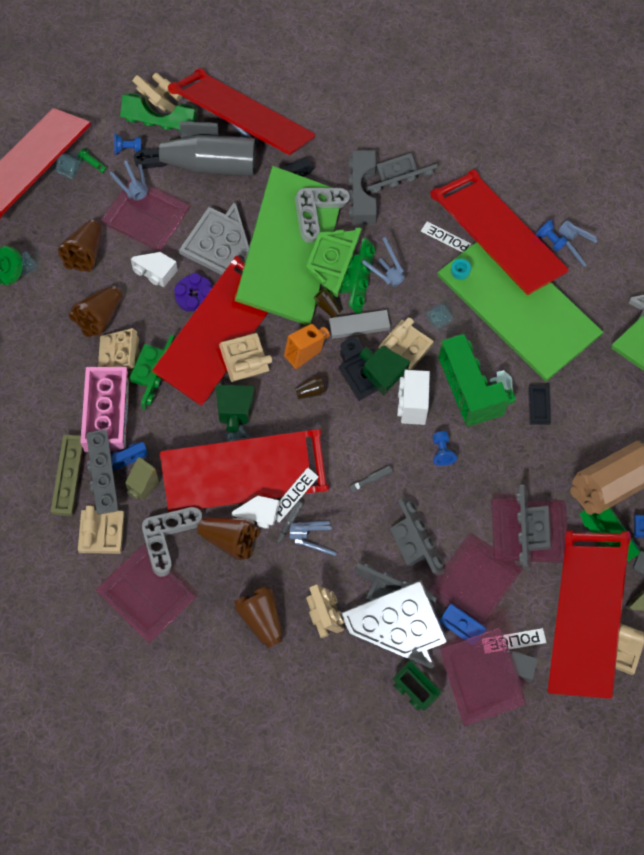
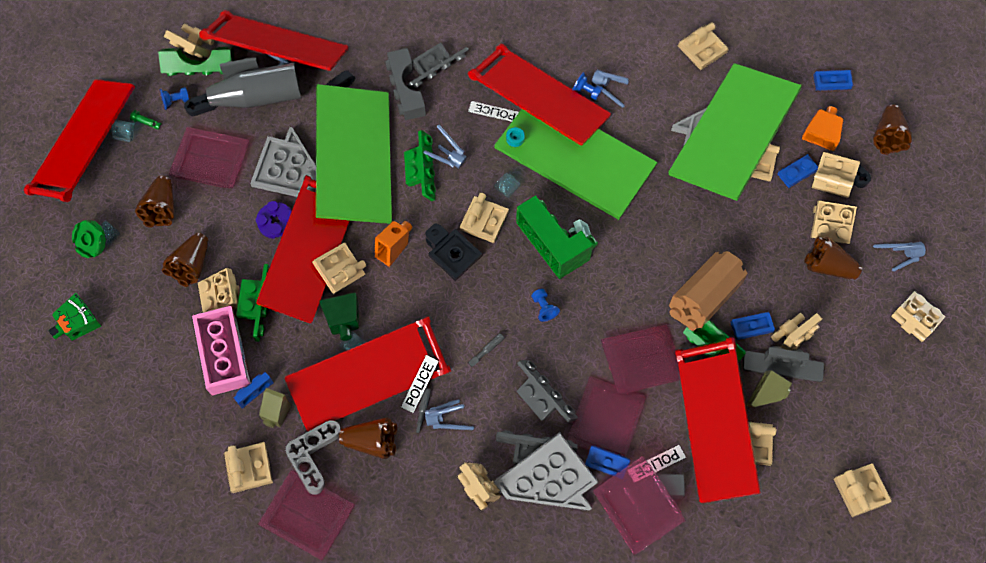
camera: 15 degrees left, 0 degrees up
(67, 476) = (201, 423): olive plate -> none
(102, 472) = (234, 411): dark grey bracket -> none
(137, 190) = (195, 136): sand blue plant -> none
(155, 267) = (232, 204): white slope -> none
(259, 509) = (392, 406): white slope -> none
(261, 615) = (421, 505): reddish brown cone -> none
(311, 388) = (408, 281): dark brown cone -> none
(312, 203) = (364, 109): light grey beam -> none
(326, 302) = (400, 197): dark brown cone -> none
(332, 257) = (395, 155): bright green wing -> none
(359, 324) = (436, 210): light grey tile -> none
(383, 367) = (470, 244): dark green torso -> none
(413, 397) = (505, 264): white brick -> none
(423, 679) = (586, 523): dark green window -> none
(535, 528) = (648, 356): dark grey bracket -> none
(539, 405) = (619, 242): black tile -> none

